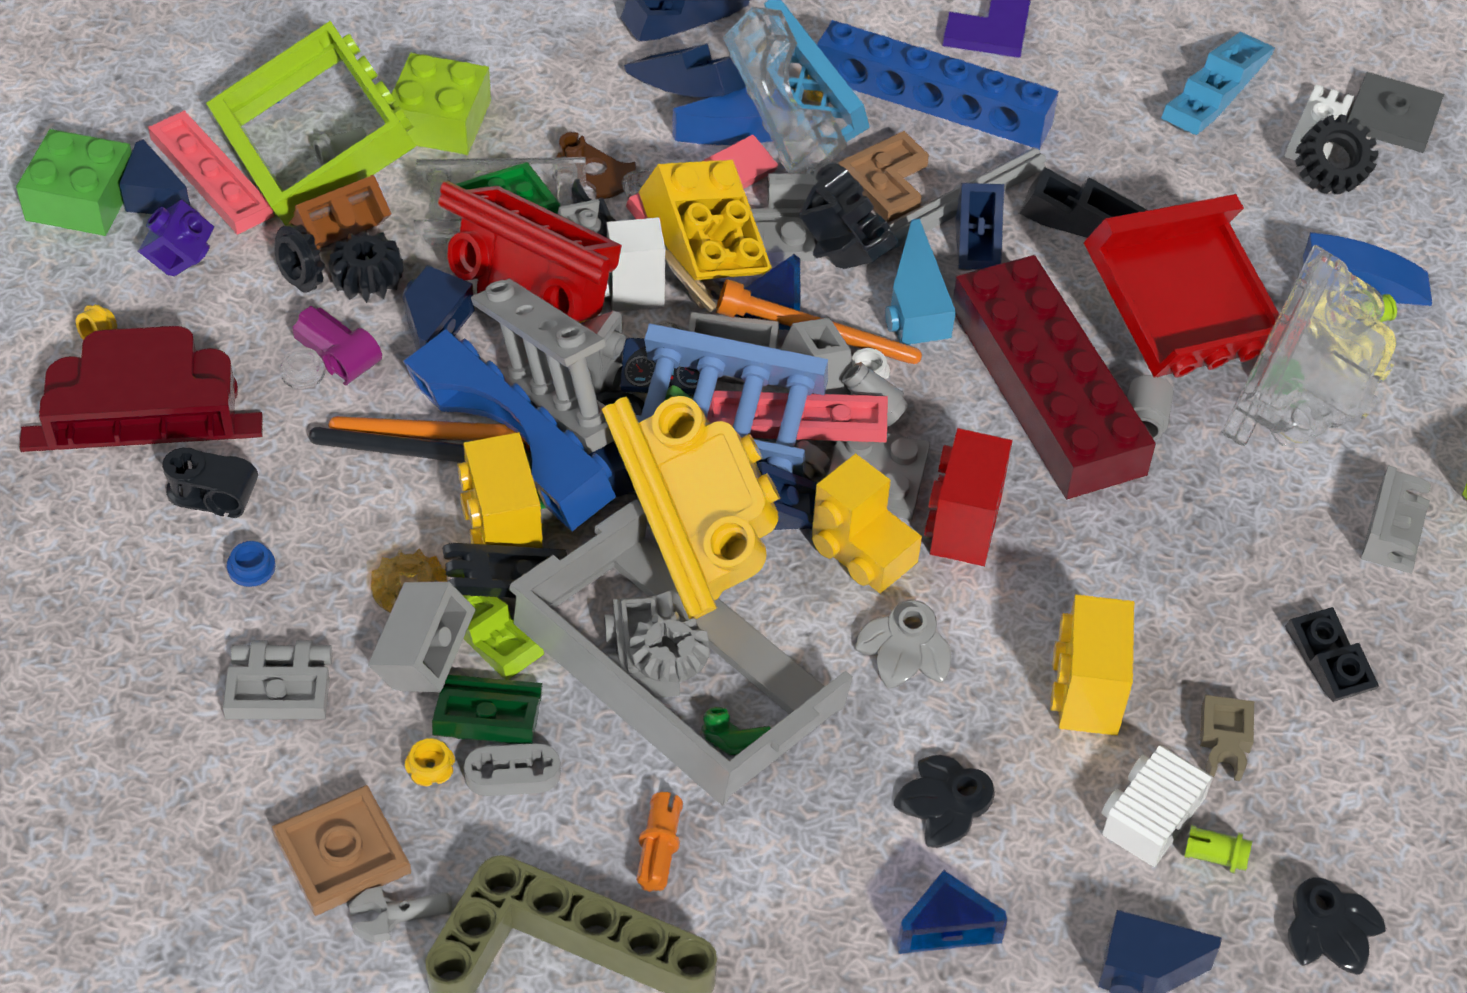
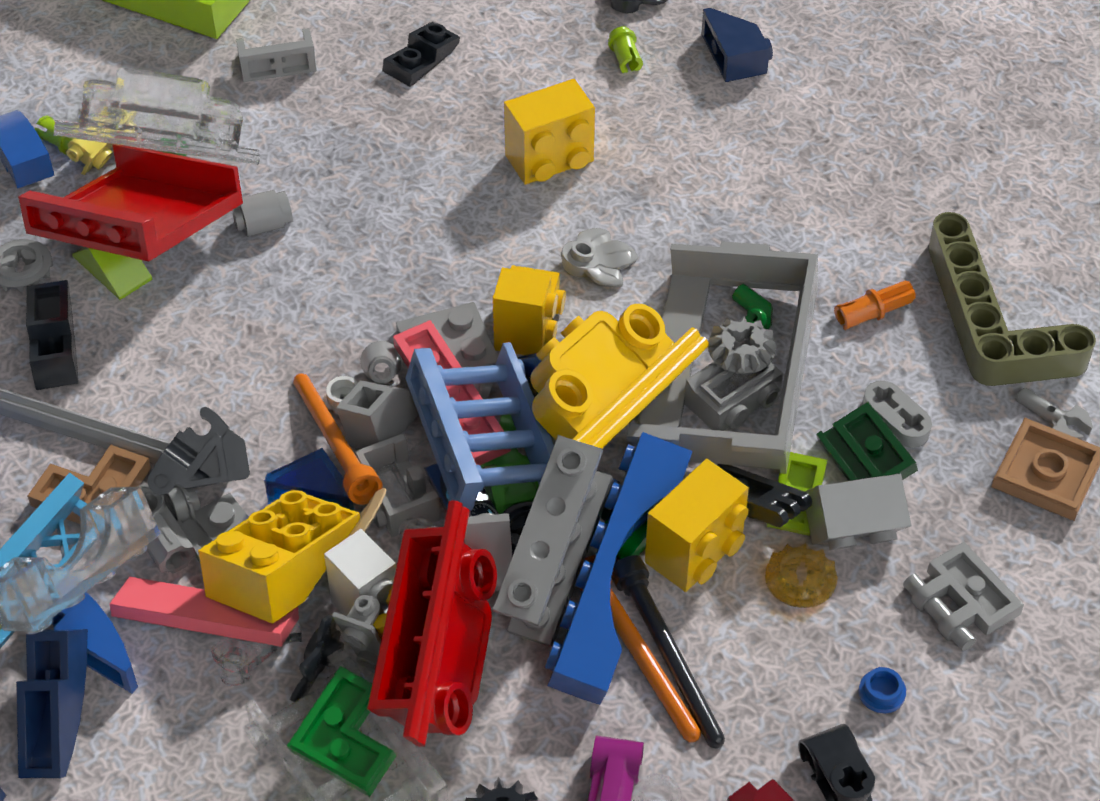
camera: 120 degrees left, 0 degrees up
(429, 751) = (940, 453): yellow plate -> none
(436, 303) = (520, 724): dark blue slope -> none
(605, 184) = (220, 703): reddish brown piece -> none
(920, 299) = (238, 394): dark azure slope -> none
(939, 799) = (708, 187): black plate -> none
(951, 918) = (799, 141): clear blue slope -> none
(967, 496) = (452, 252): red brick -> none
(979, 225) = (126, 389): dark blue slope -> none
(1052, 377) = (271, 276): dark red brick -> none
(1155, 805) = (622, 81): white brick -> none
(1228, 730) = (532, 75): dark tan plate -> none

